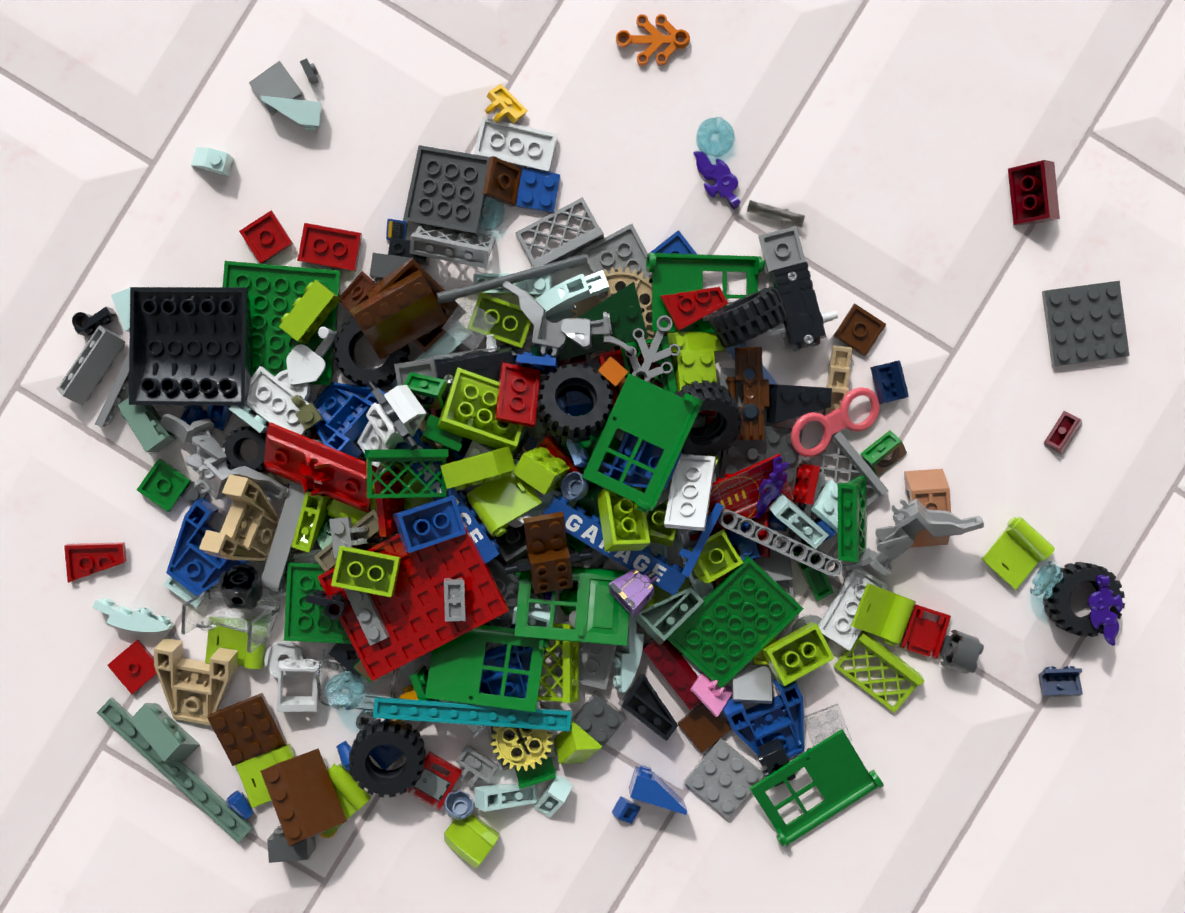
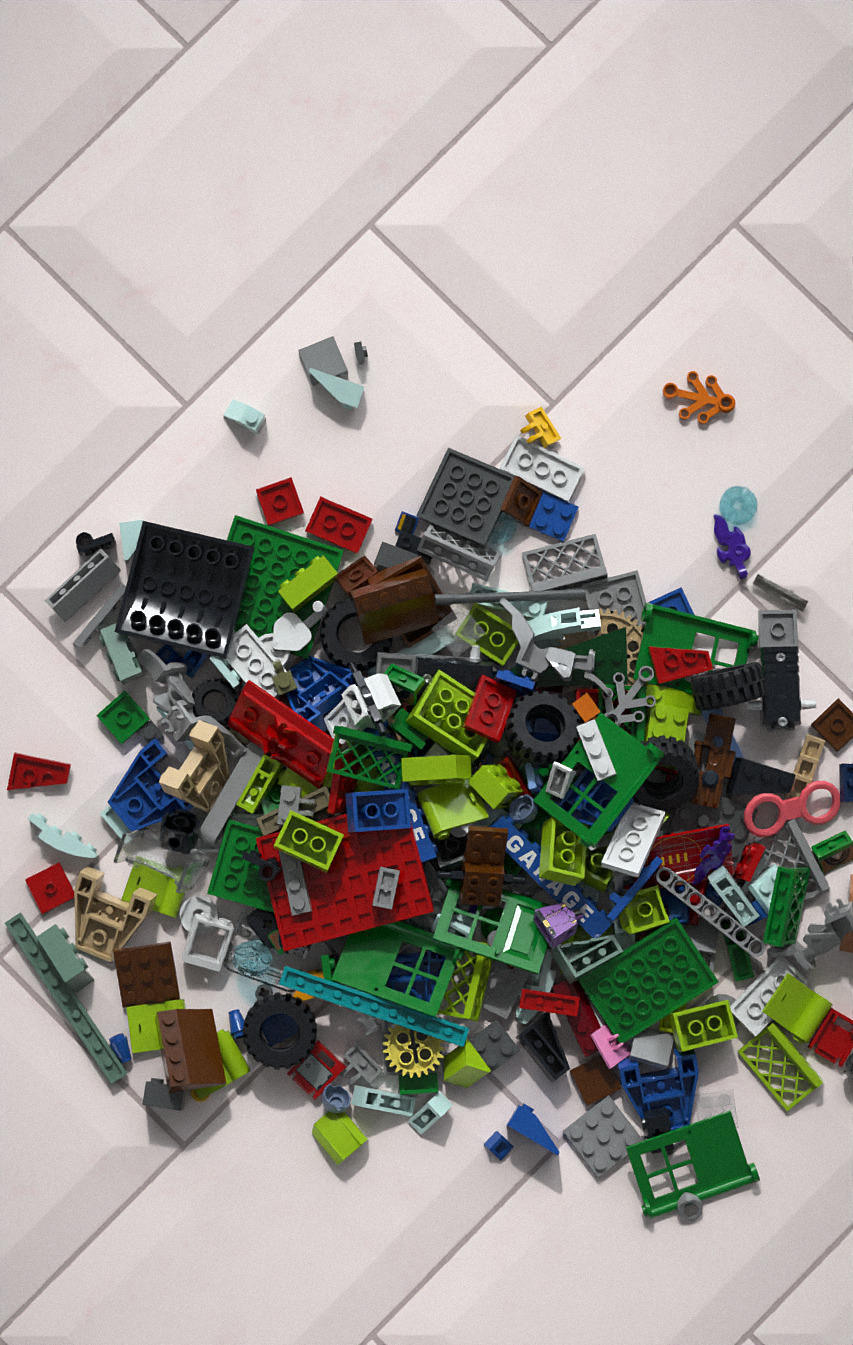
camera: 15 degrees right, 5 degrees down
(603, 451) = (559, 780): none -> white slope
(633, 412) = (596, 750): none -> white plate
(643, 667) = (549, 1002): none -> red plate
(818, 819) = (684, 1200): none -> light grey piece

